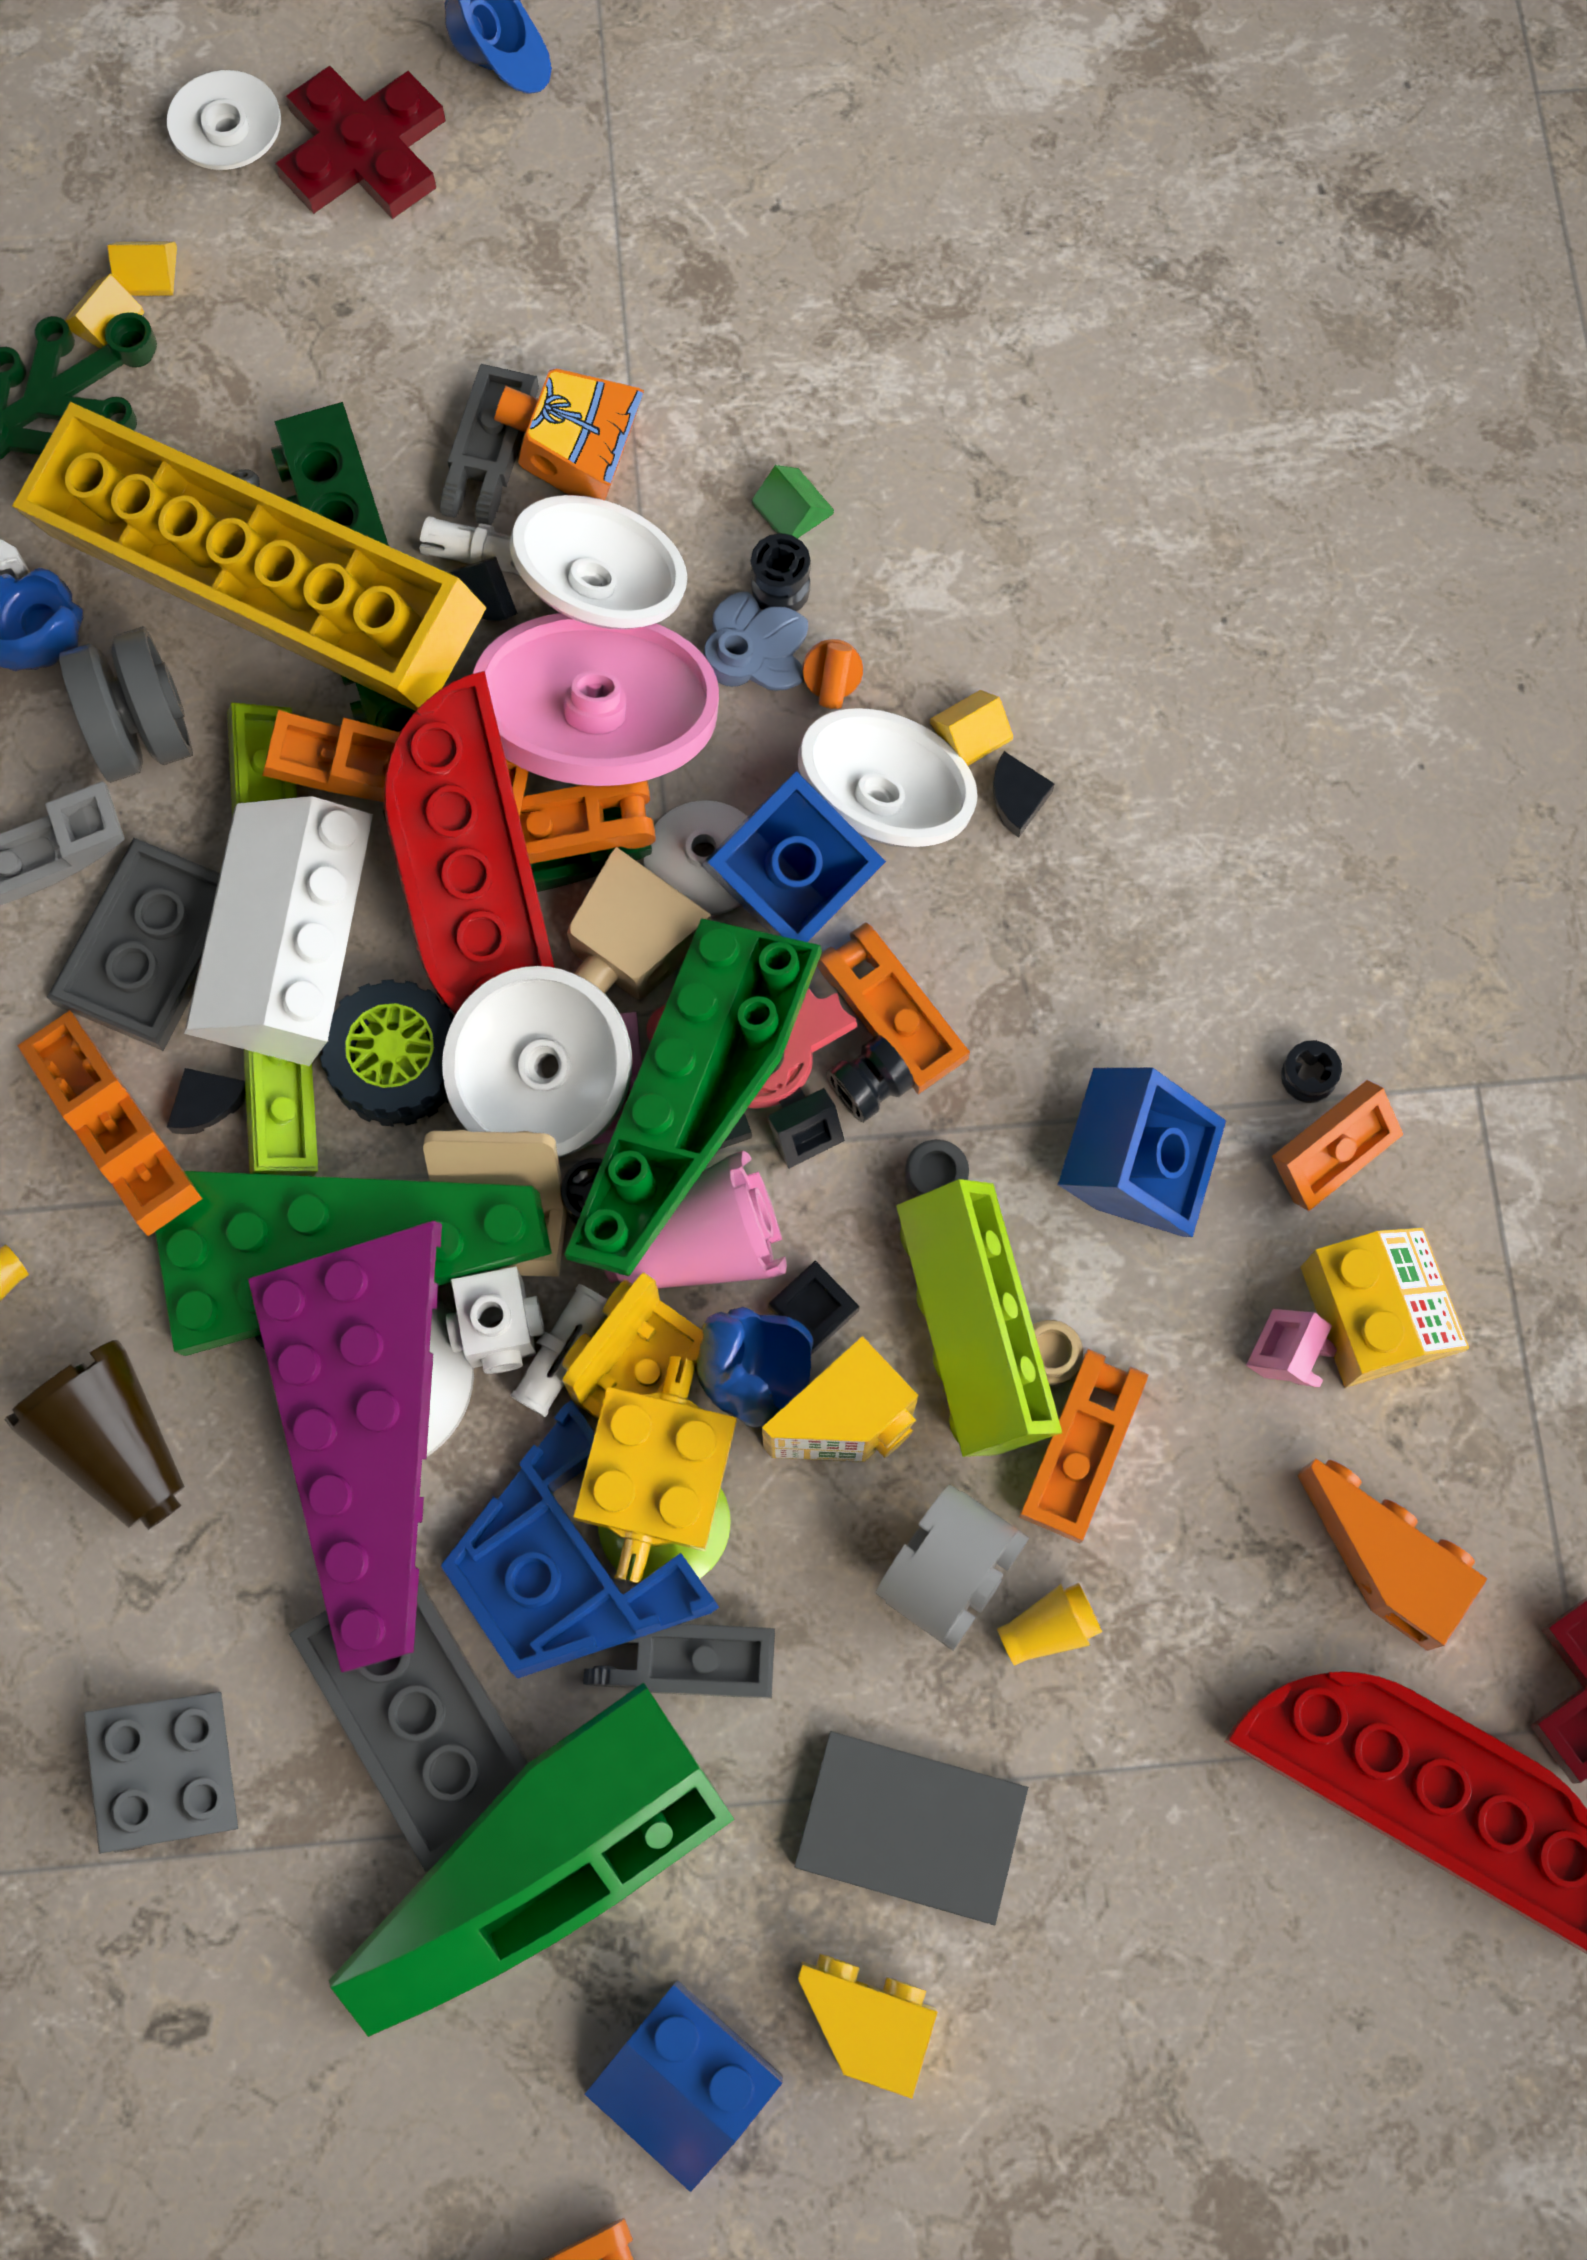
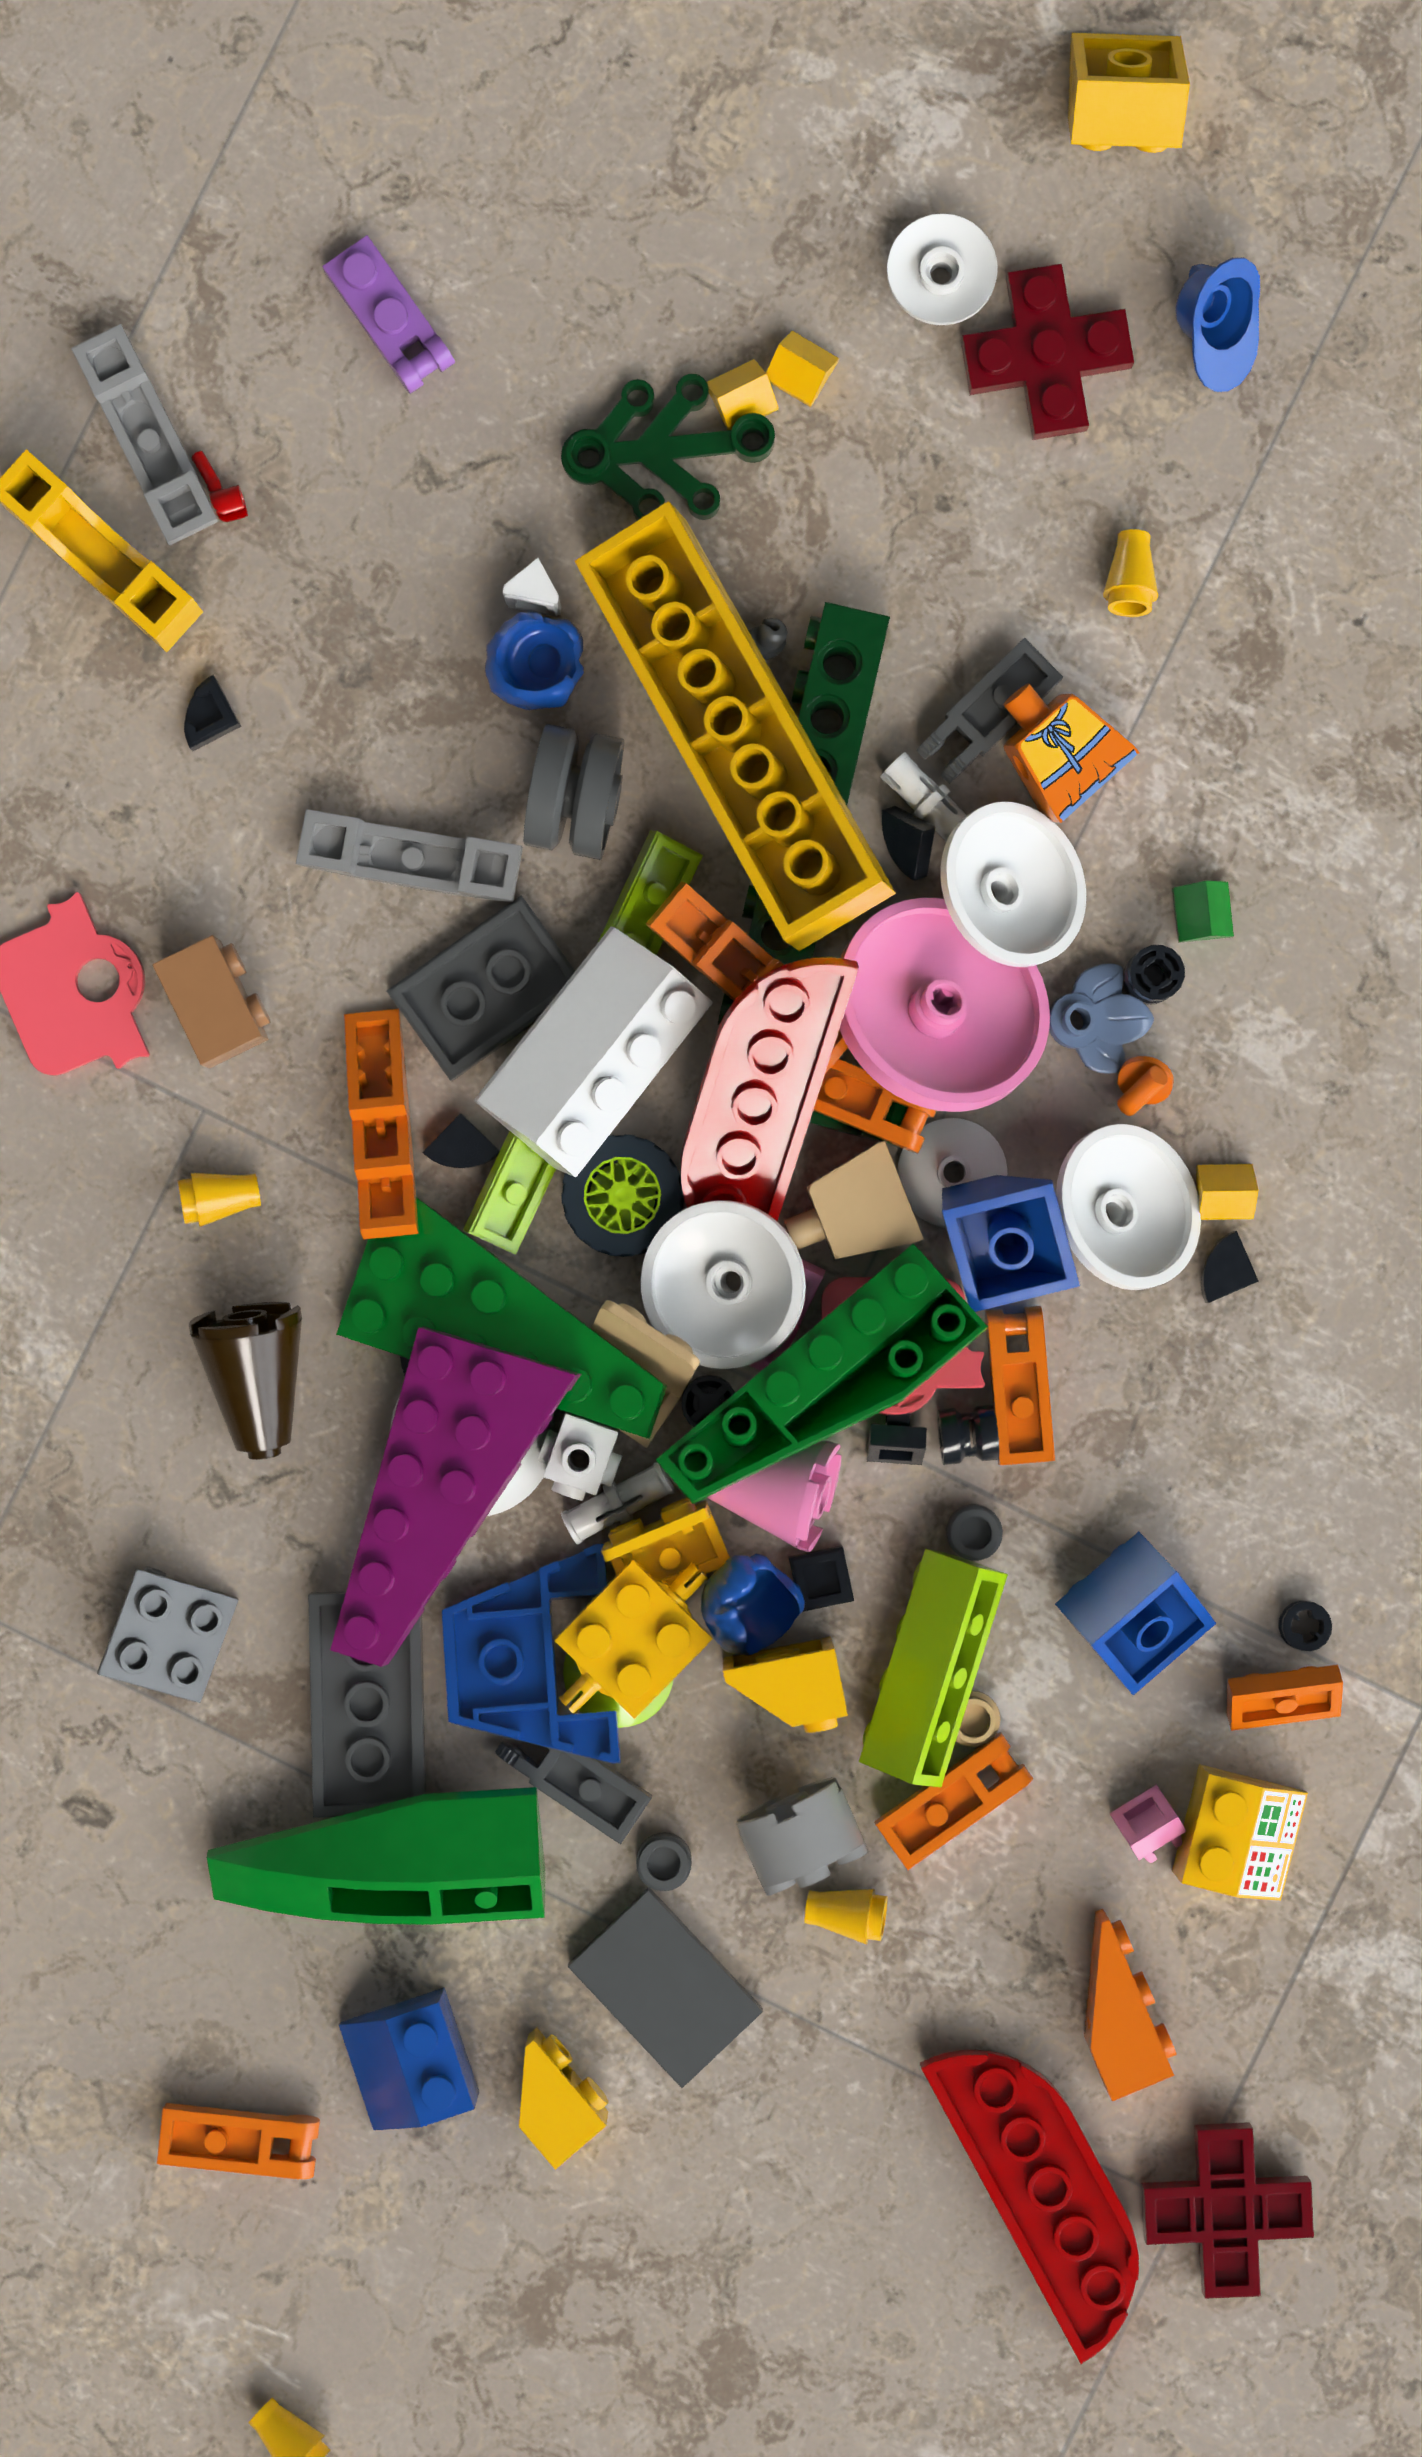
camera: 35 degrees right, 15 degrees up
(549, 271) = (1131, 577): none -> yellow cone
(829, 1693) = (664, 1861): none -> dark grey tile

